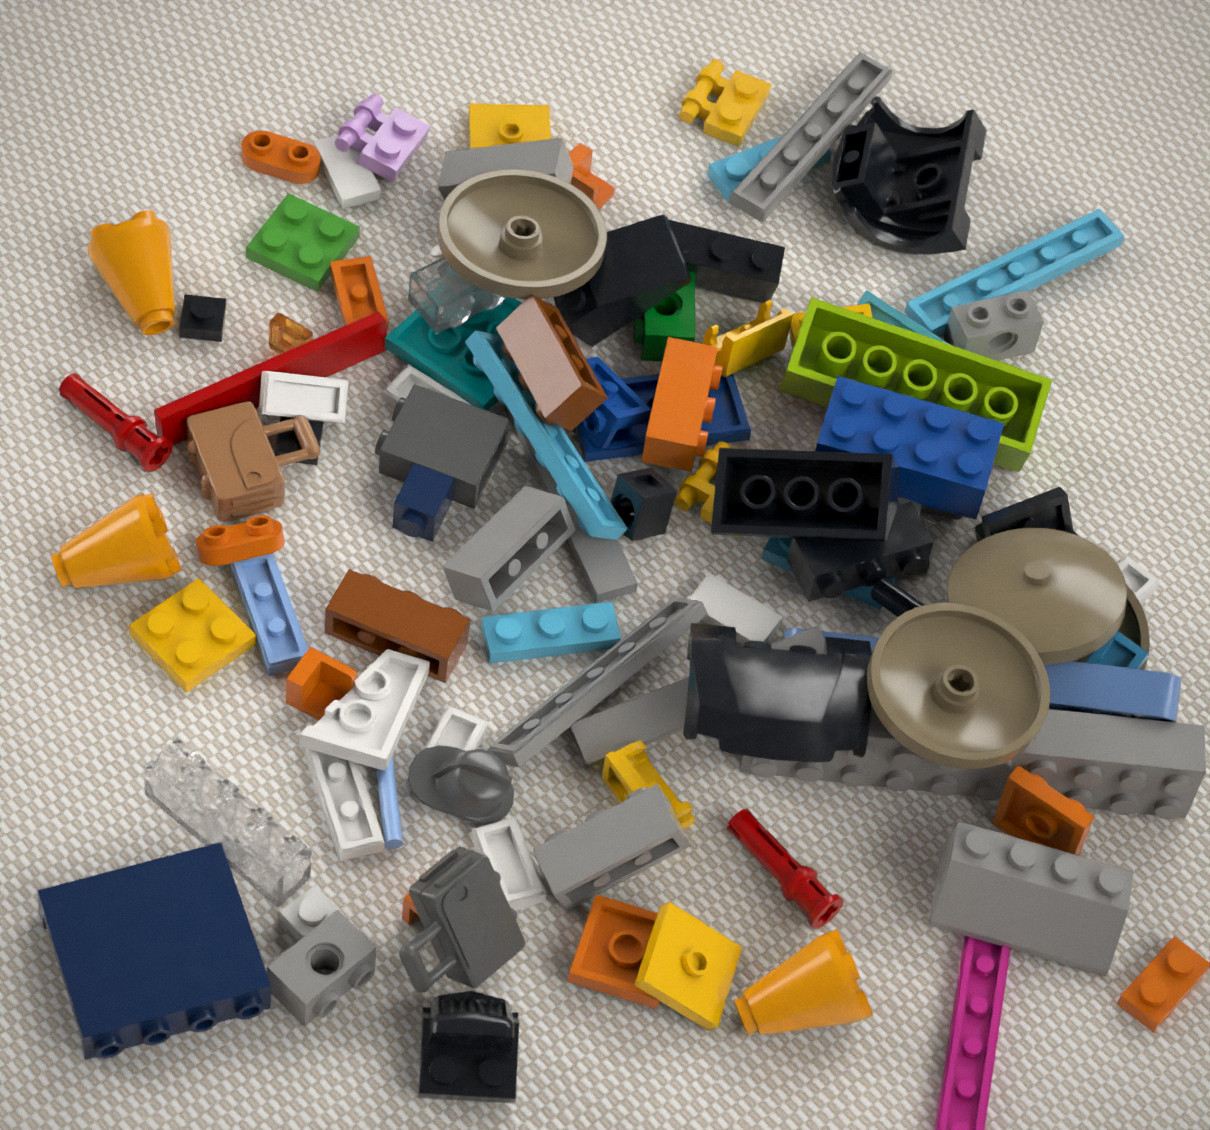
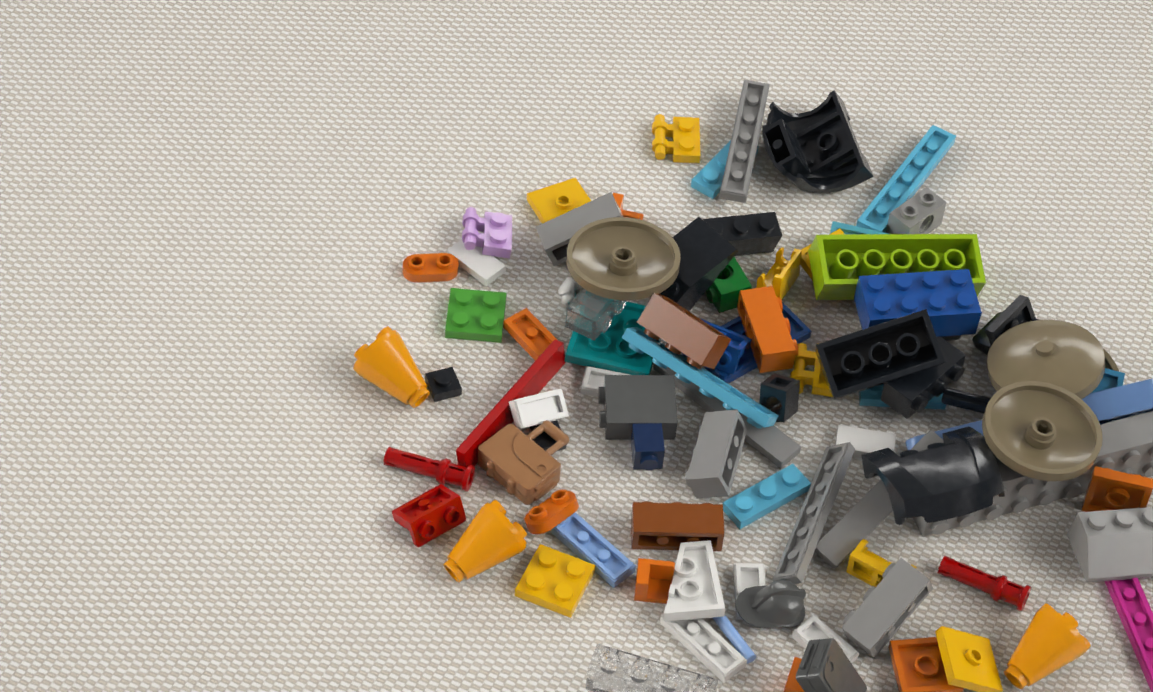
camera: 20 degrees left, 5 degrees down
(77, 484) = (430, 514): none -> red bracket
(287, 334) = (506, 375): clear orange tile -> none

